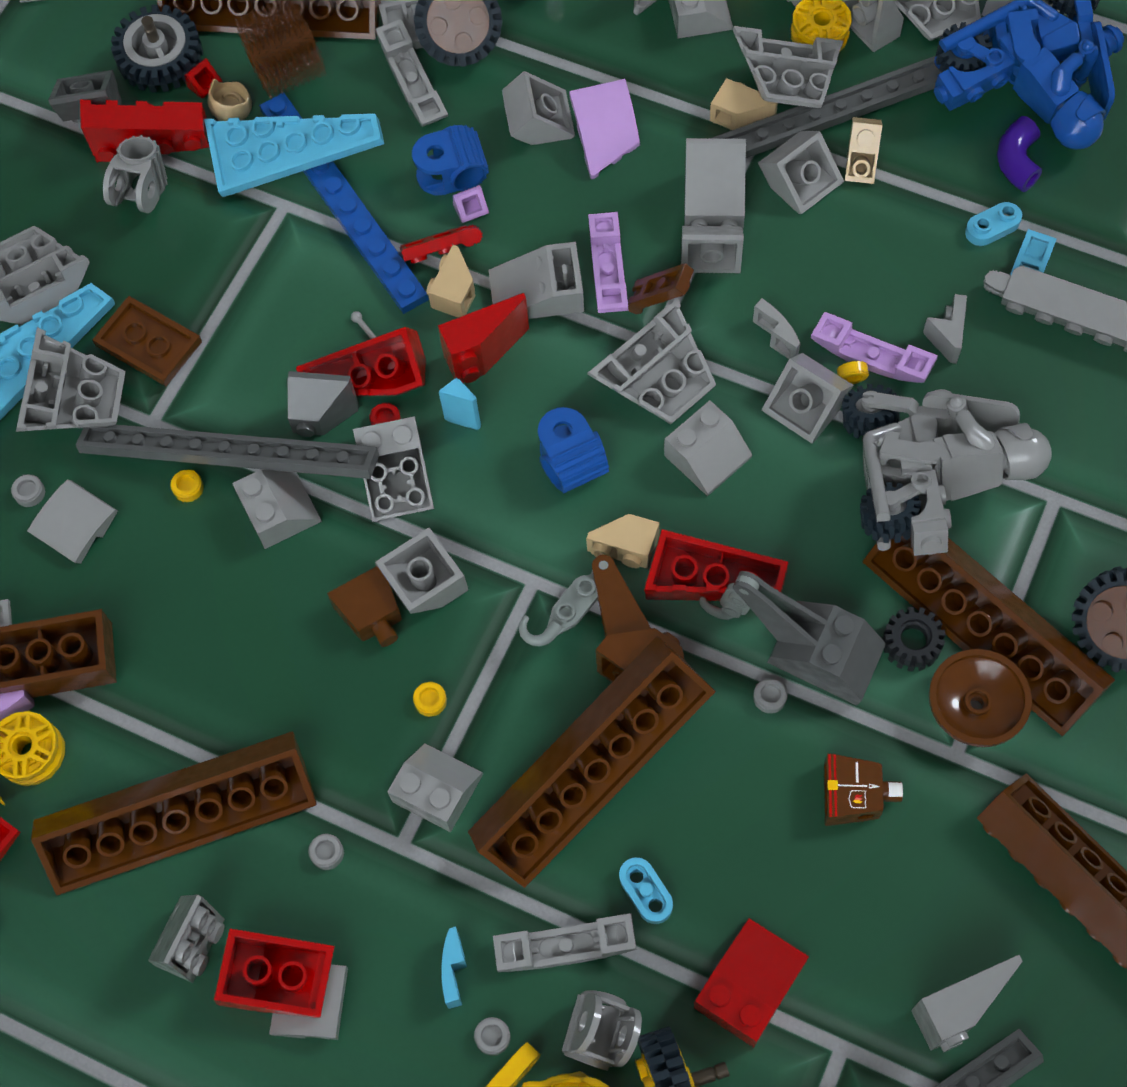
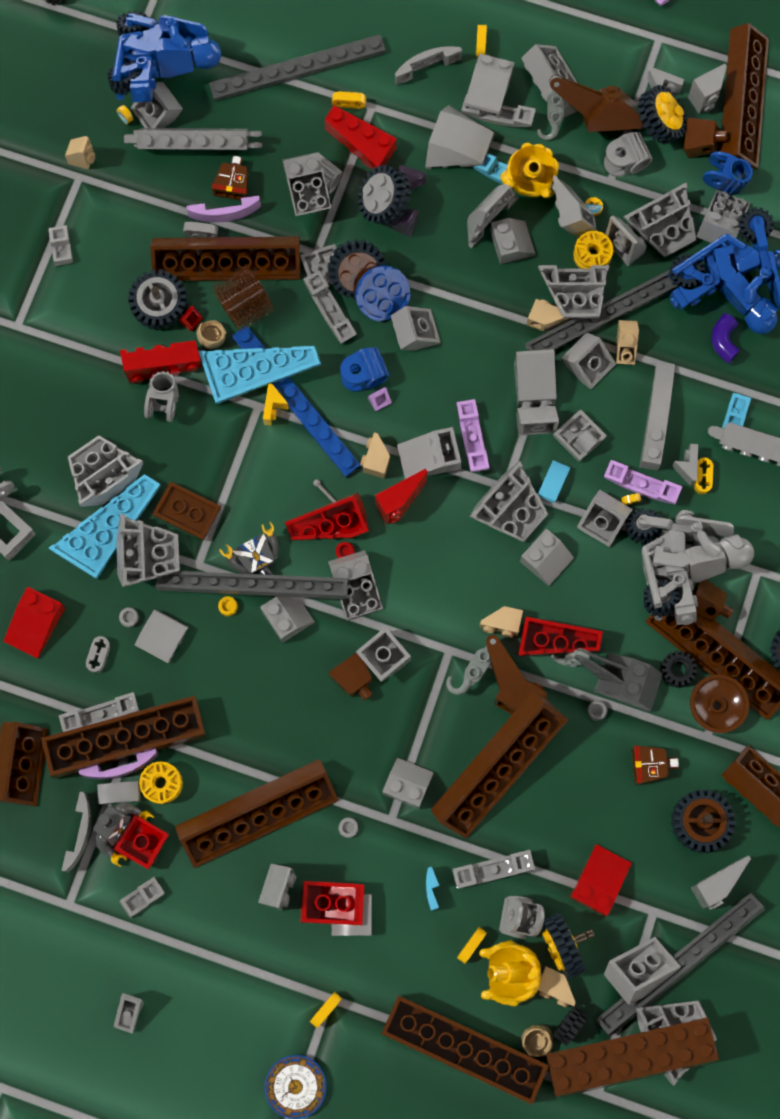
camera: 10 degrees left, 10 degrees up
(94, 87) = (117, 338): dark grey slope -> none
(242, 408) = (255, 555): none -> torso
(304, 197) = (273, 400): none -> yellow slope
(319, 402) = (304, 548): slope -> none
(429, 699) = (396, 730): yellow tile -> none
(442, 242) = (364, 428): red hinge -> none
(460, 405) = (393, 542): medium azure slope -> none
(491, 53) = (382, 292): none -> blue tile
(492, 1036) = (458, 924): light grey tile -> none
(570, 451) = (466, 573): blue piece -> none
(605, 123) = (460, 335): lavender slope -> none
(646, 891) = (536, 834): medium azure plate -> none
(660, 287) = (508, 454): reddish brown plate -> none
(730, 339) = (553, 481): none -> medium azure slope
(778, 274) = (579, 435): none -> light grey plate
(782, 334) = (586, 479): light grey slope -> none
(903, 259) = (657, 416): none -> light grey slope
(941, 894) = (703, 821): none -> wheel
(975, 533) = (711, 601): none -> reddish brown torso
(980, 348) = (708, 476): none -> yellow beam
(996, 223) = (712, 387): medium azure plate -> none

